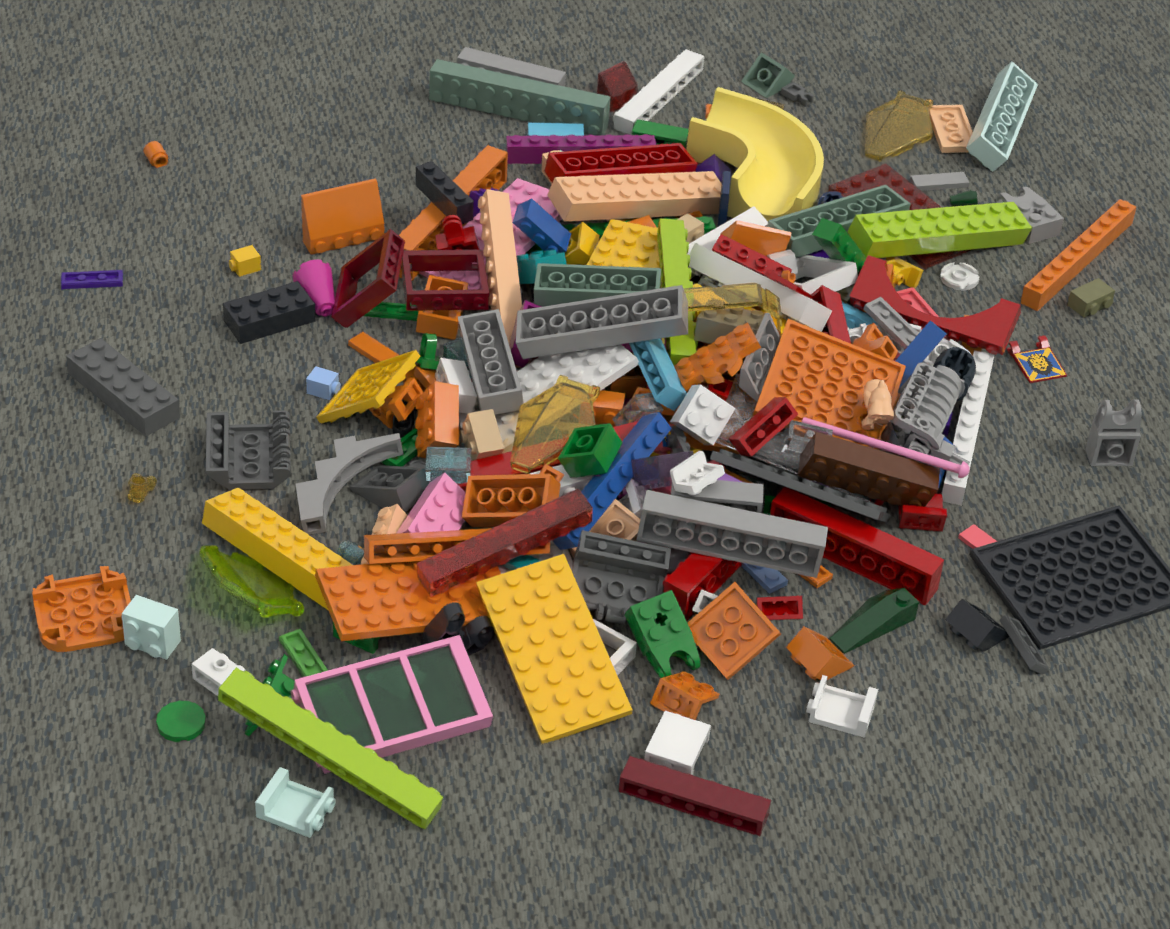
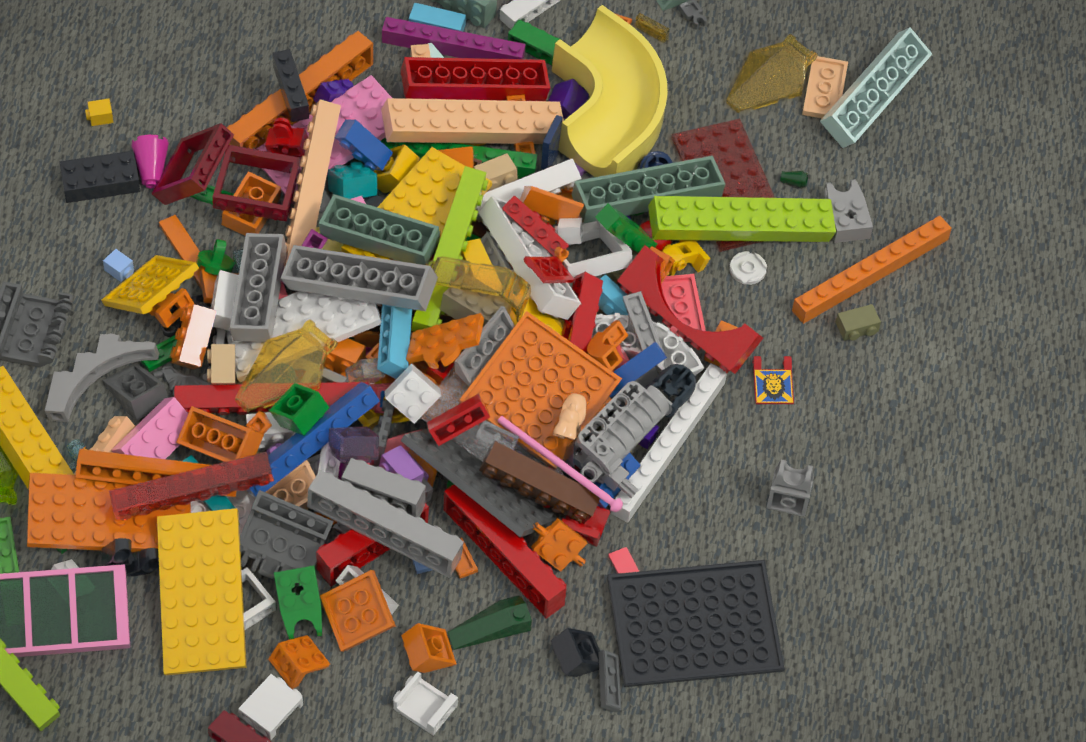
camera: 15 degrees right, 15 degrees up
(342, 216) = (197, 86): orange slope -> none
(452, 461) = (184, 387): clear light blue brick -> none
(695, 474) = (366, 465): white bracket -> none
(781, 607) = (416, 591): red slope -> none
(912, 525) = (559, 544): none -> orange plate
(940, 181) = (783, 150): light grey tile -> none

